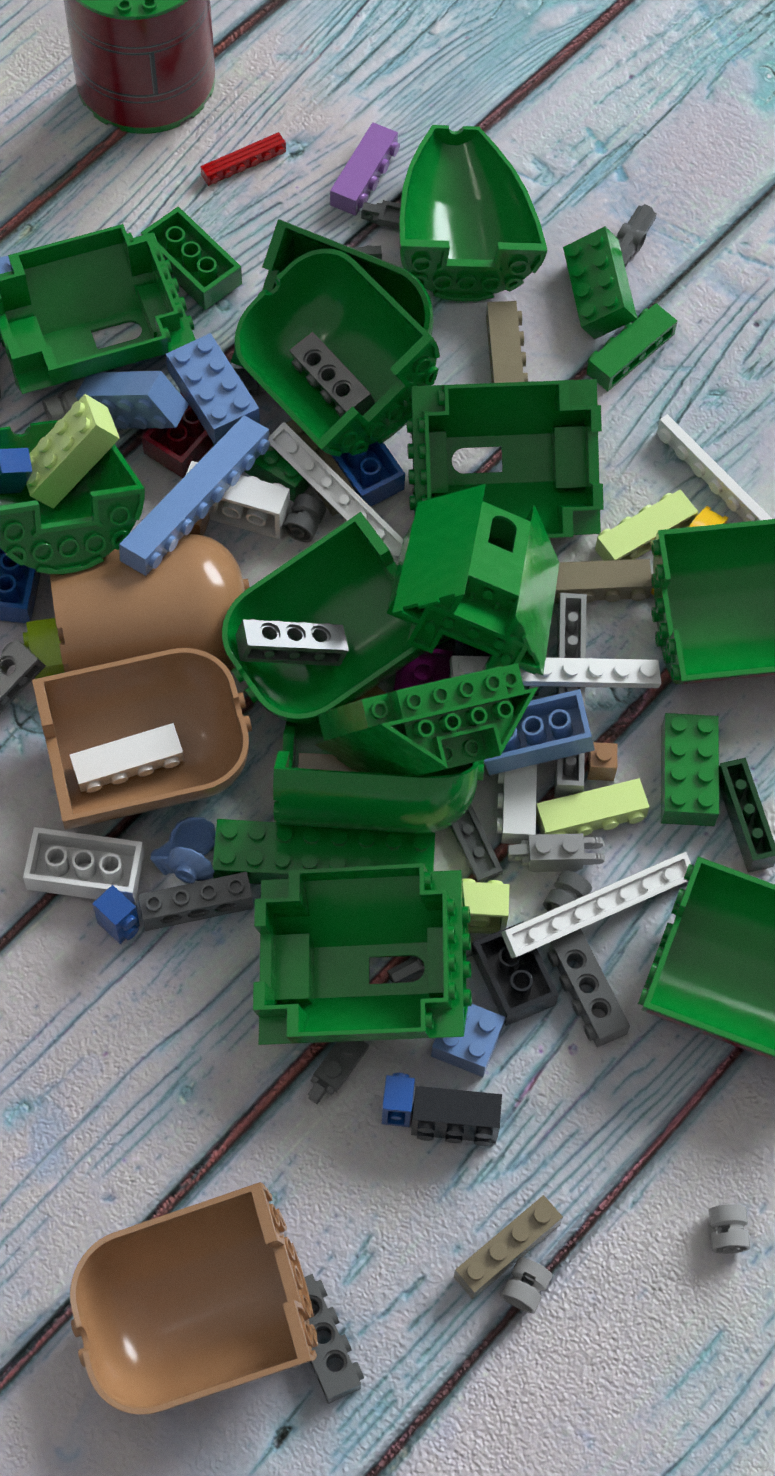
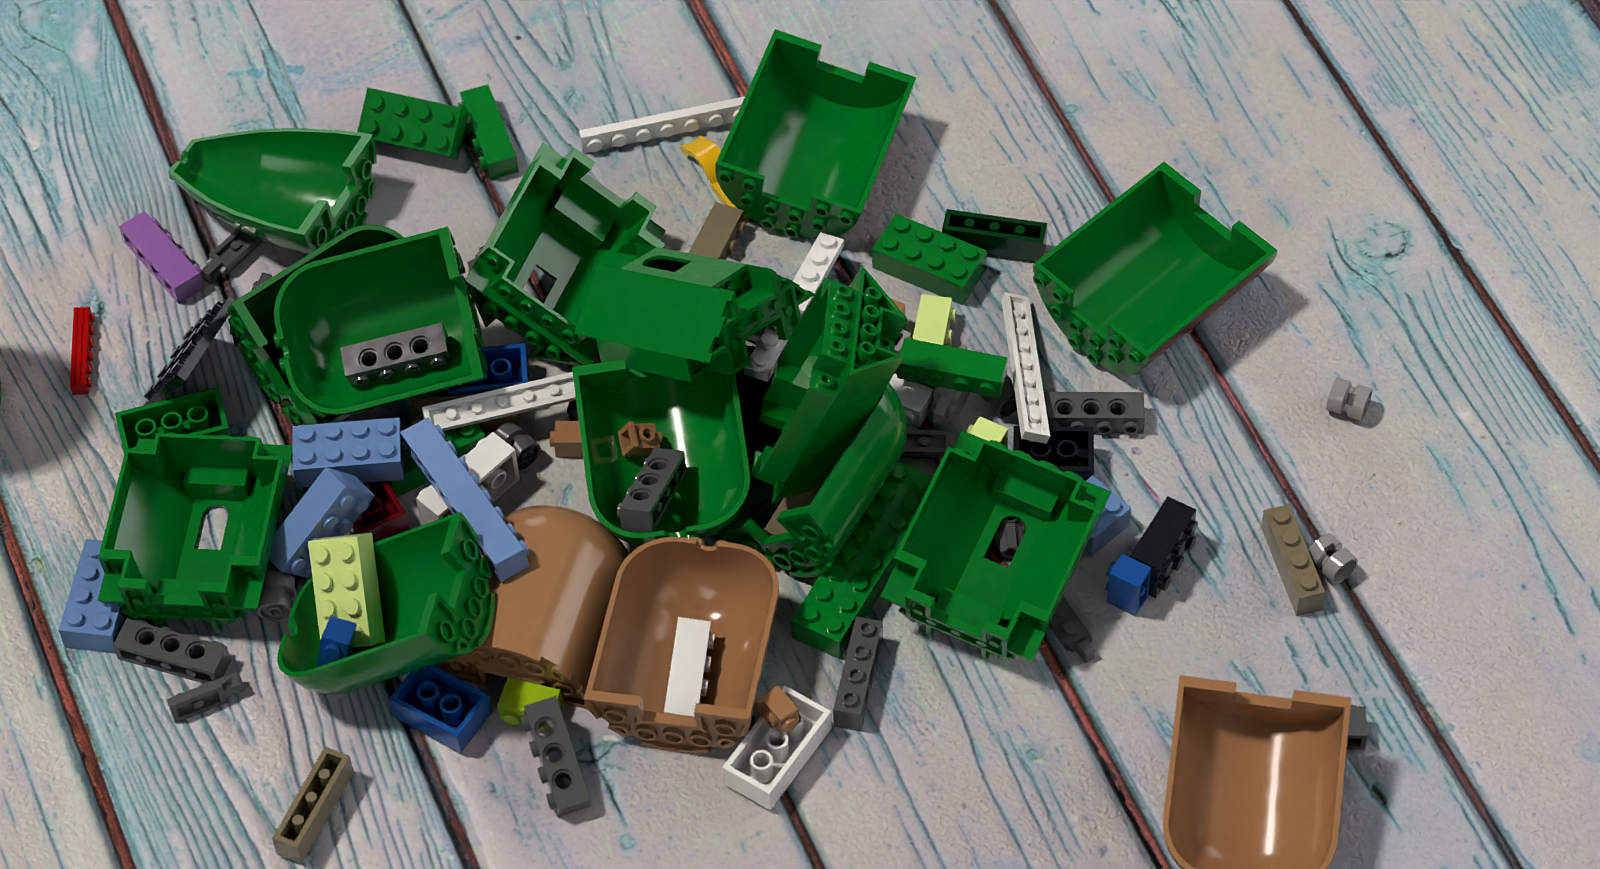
camera: 60 degrees left, 10 degrees down
(104, 847) = (777, 710): none -> medium nougat brick
(116, 915) = (843, 735): blue brick -> none
(186, 850) = (822, 660): medium blue animal -> none
(246, 227) = (189, 353): none -> black plate
(340, 603) = (639, 439): none -> medium nougat brick
(505, 342) = (414, 217): dark tan brick -> none
(554, 838) = (952, 368): none -> green brick
(633, 234) = (365, 75): dark grey piece -> none
(634, 534) = (680, 195): yellowish green brick -> none

